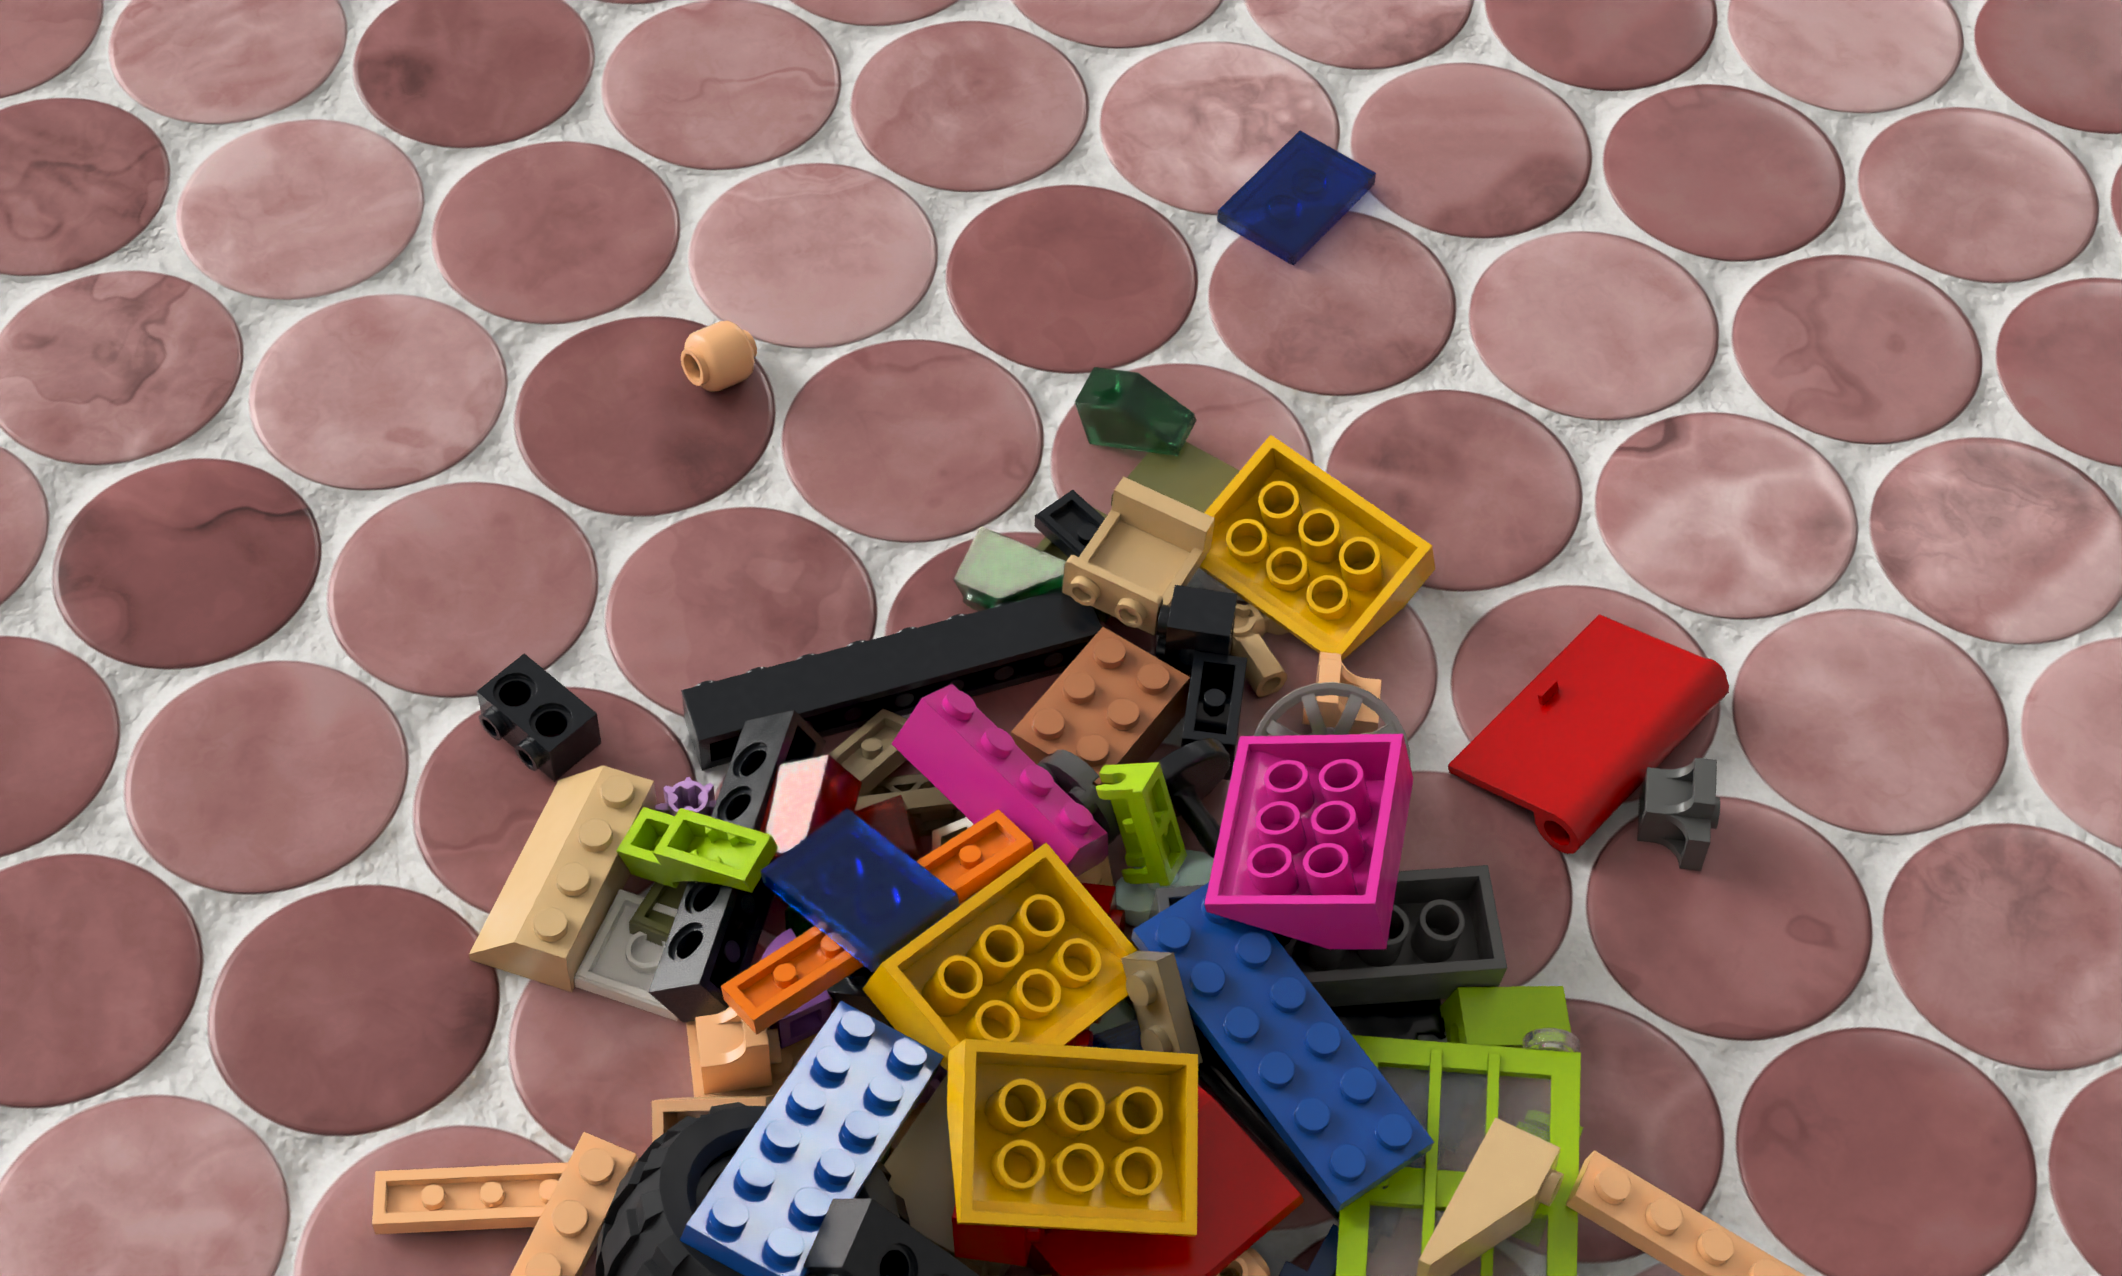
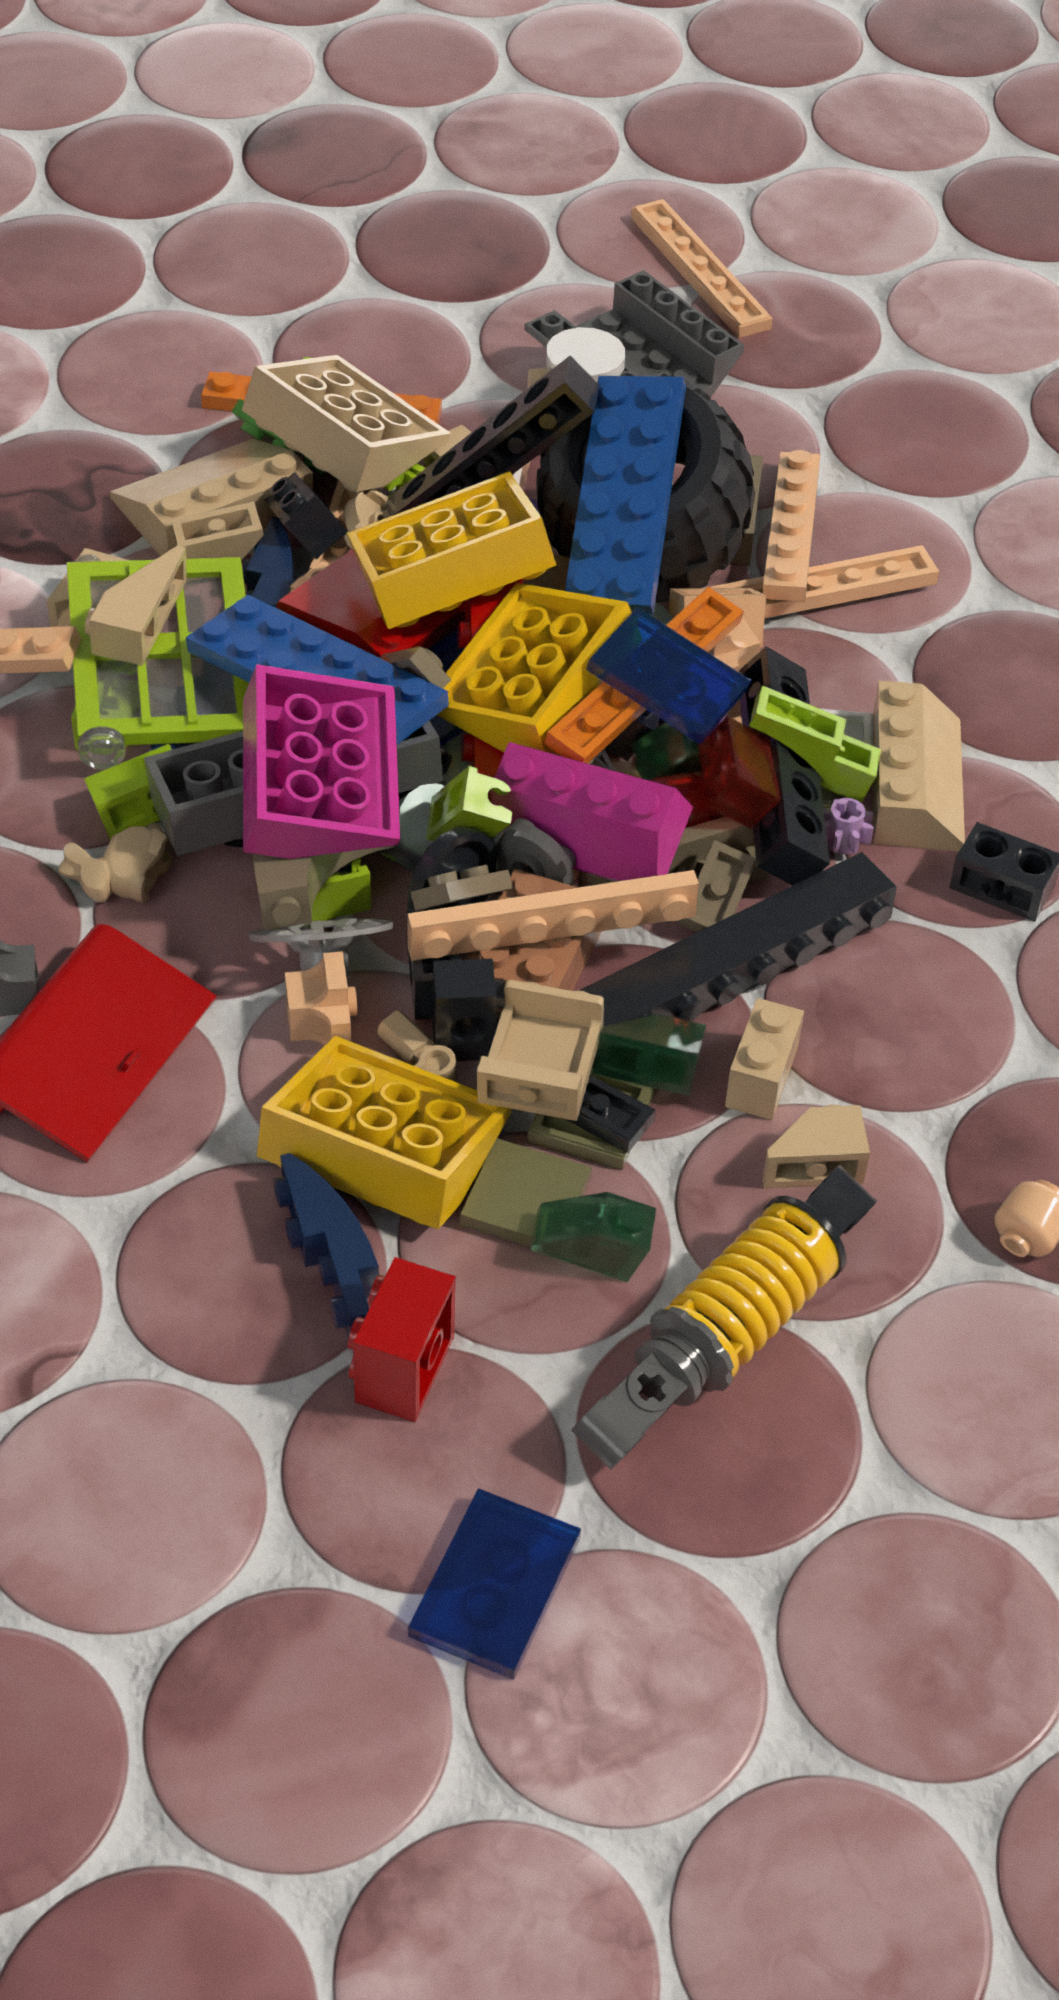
camera: 165 degrees right, 5 degrees down
(888, 461) = (818, 1145): none -> tan slope
(902, 554) = (764, 1058): none -> tan brick
(1032, 319) = (729, 1311): none -> piece
(1086, 669) = (552, 915): none -> light nougat plate
(1180, 722) = (448, 889): none -> dark tan plate
(1335, 345) = (402, 1338): none -> red brick
(1371, 457) = (327, 1238): none -> dark blue slope
(1535, 929) = (127, 867): none -> tan animal

